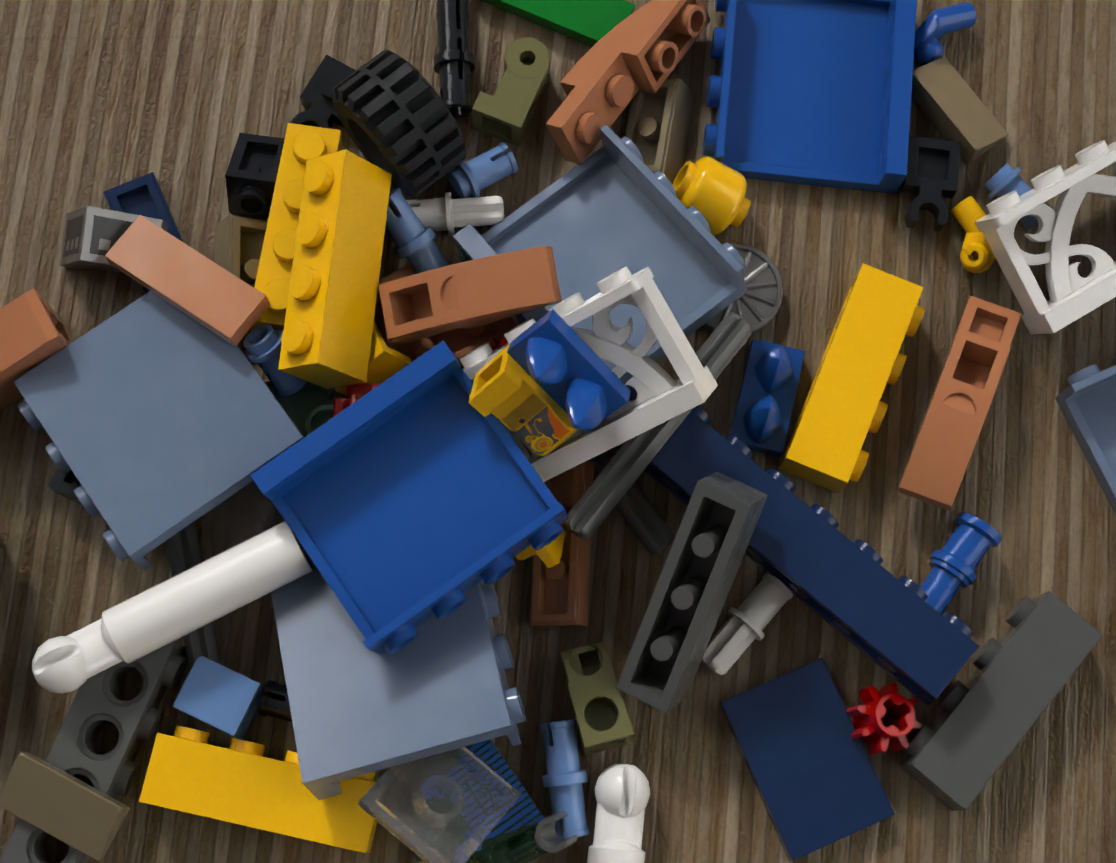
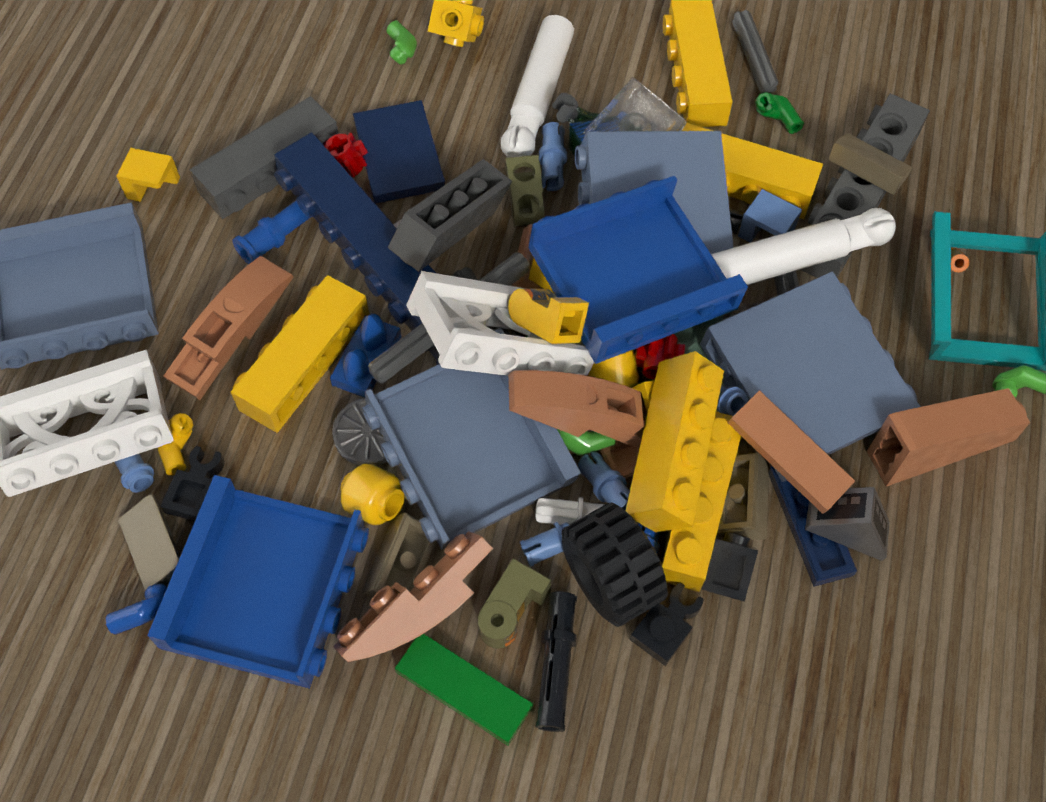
camera: 165 degrees left, 15 degrees down
(569, 371) = (516, 318): blue tile -> none

